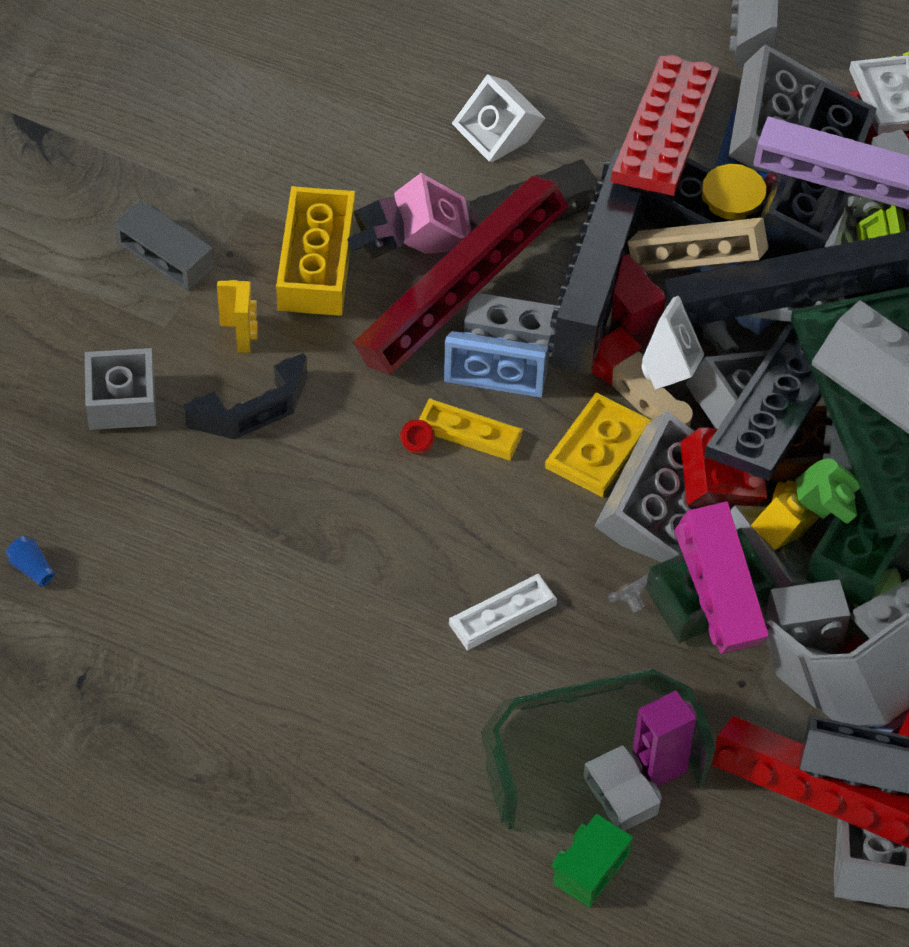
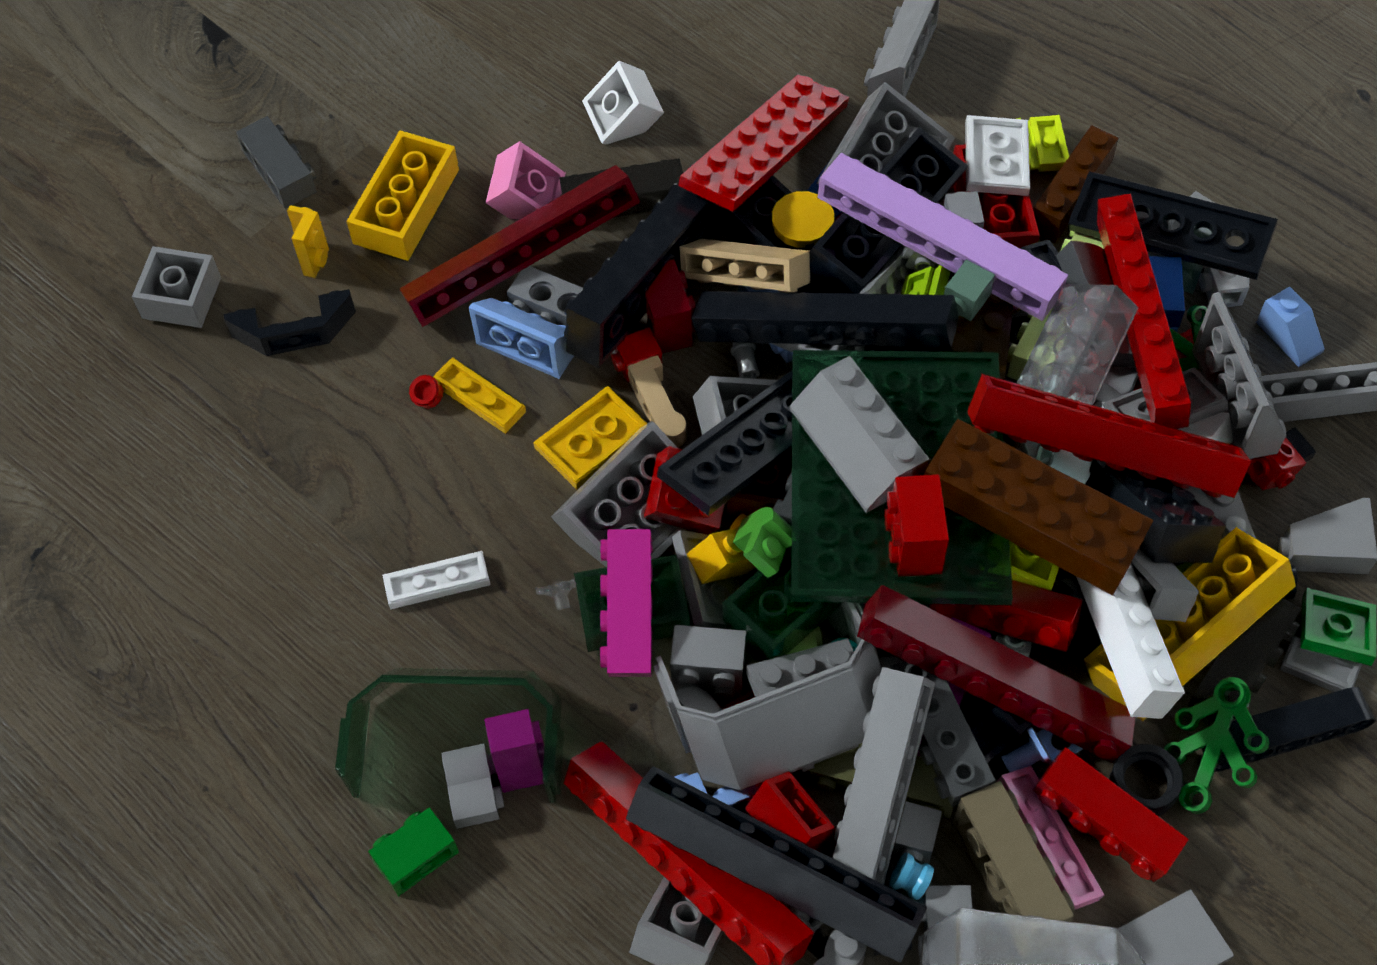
camera: 20 degrees right, 5 degrees up
(29, 559) = (35, 427): blue cone -> none
(379, 226) = (467, 187): black brick -> none
(673, 349) = (681, 357): white slope -> none

